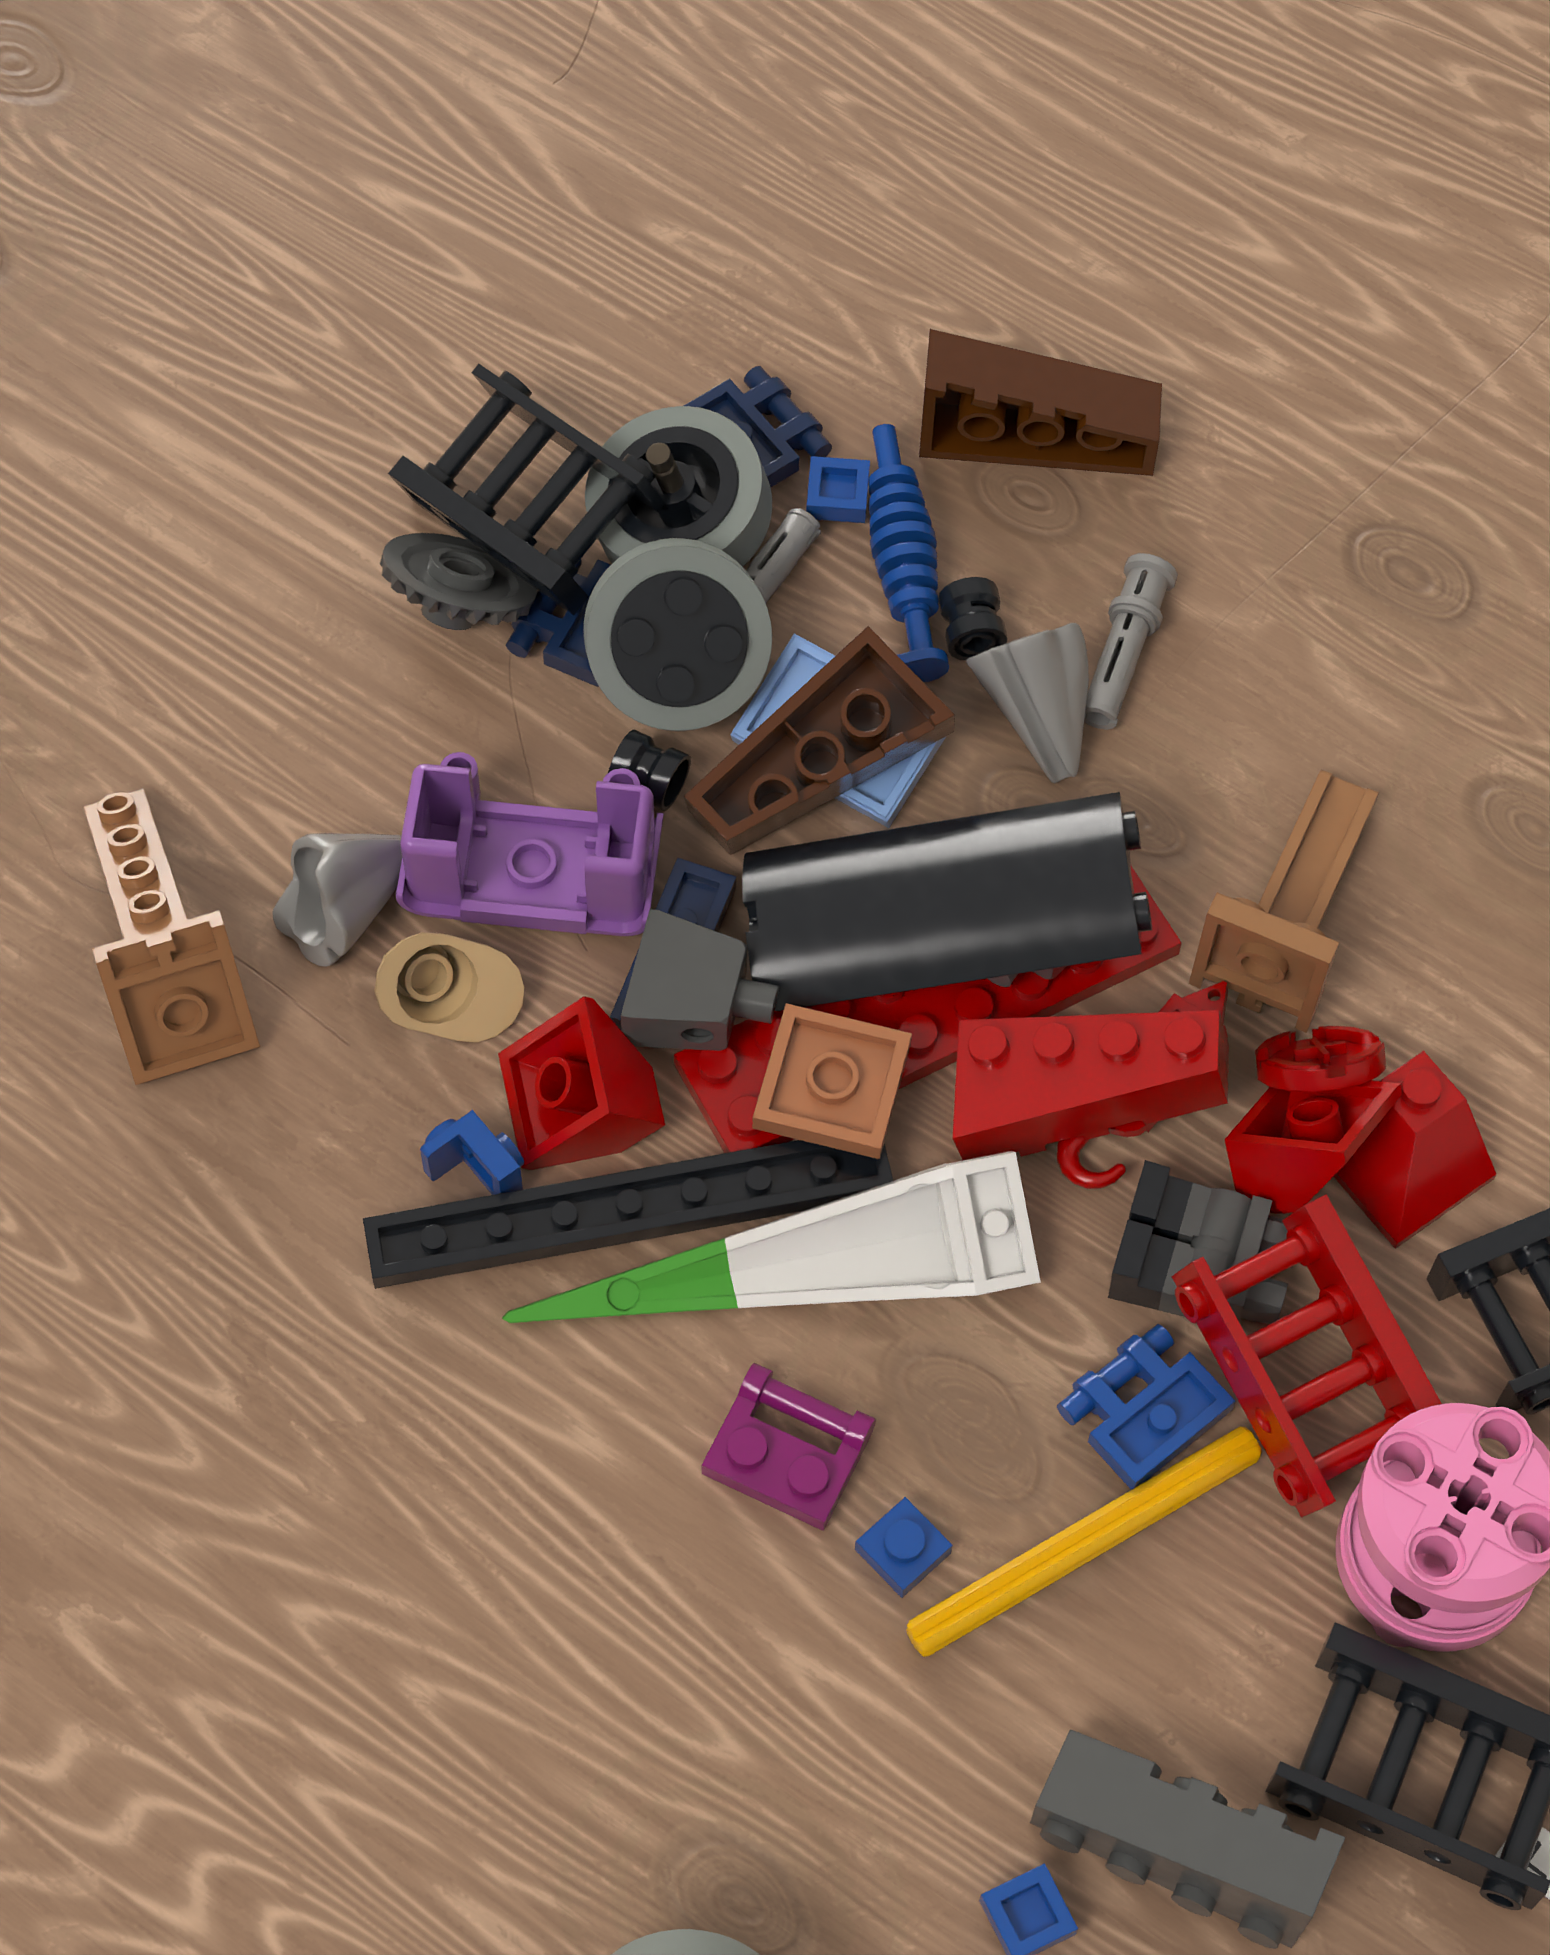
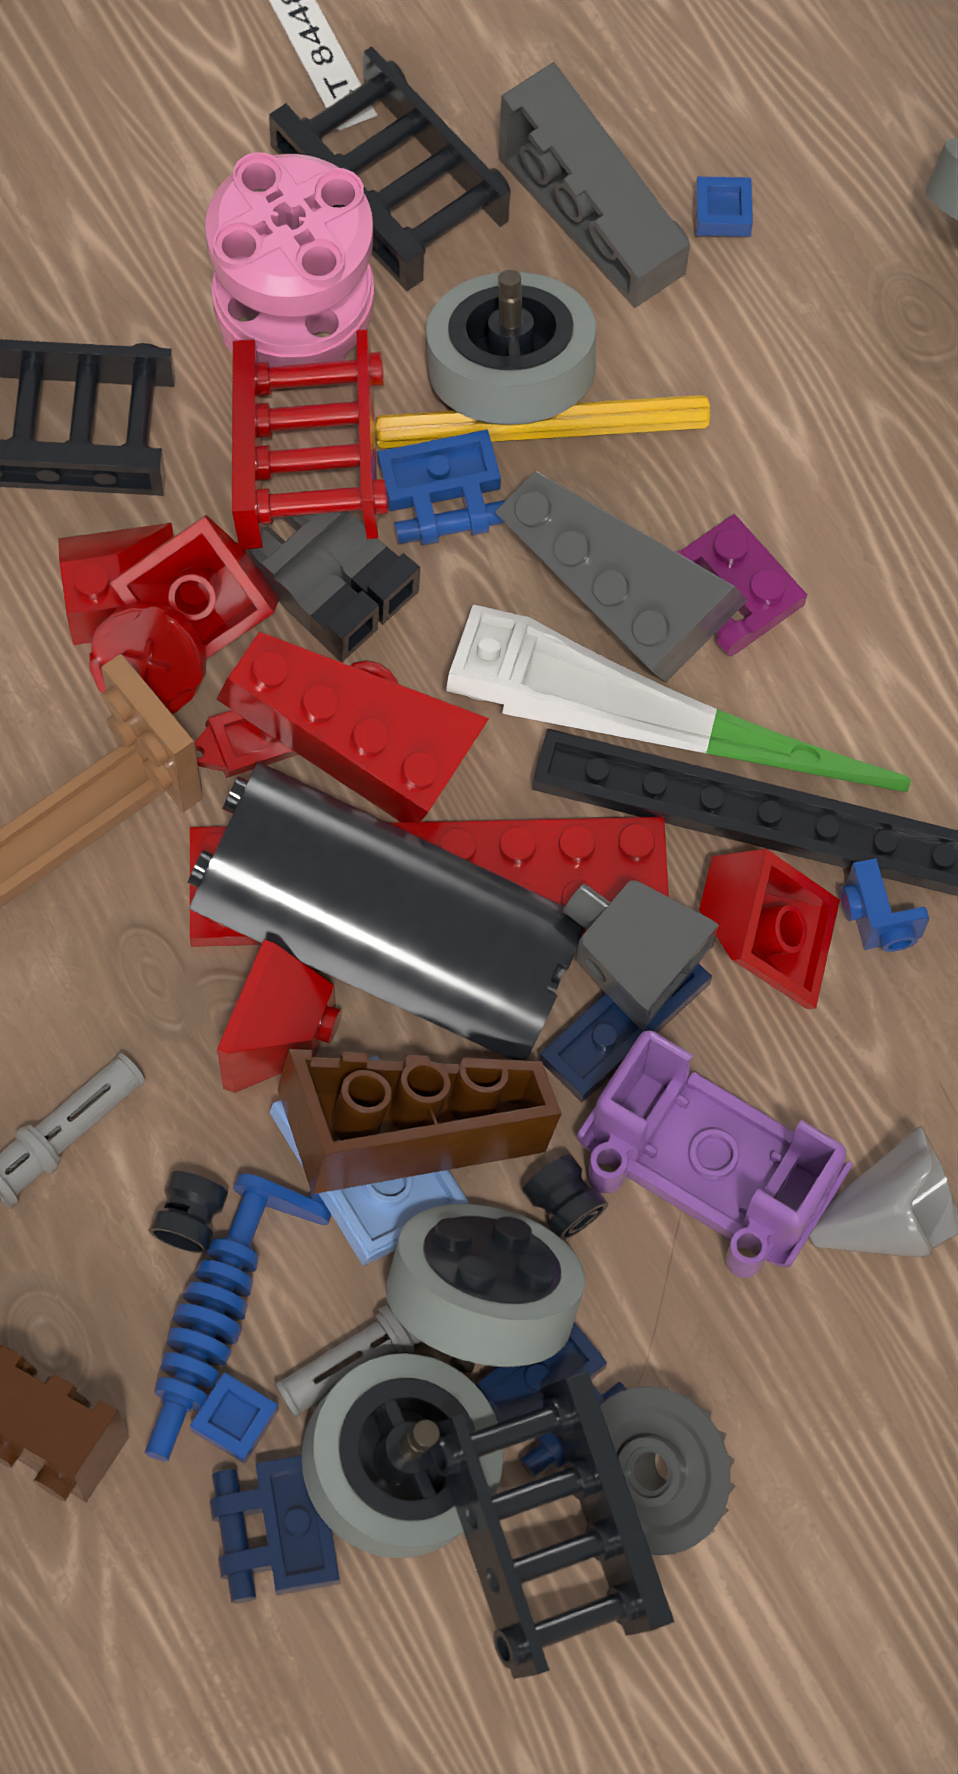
camera: 155 degrees left, 5 degrees up
(449, 987) = (845, 1074): tan piece -> none
(832, 1081) = (559, 816): nougat plate -> none
(903, 1547) = (681, 478): blue plate -> none
(911, 1369) = (633, 583): none -> dark grey wedge
(994, 768) = (277, 1011): none -> red slope
(1042, 693) = (180, 1098): light grey hat -> none
(1163, 1578) = (511, 347): none -> wheel

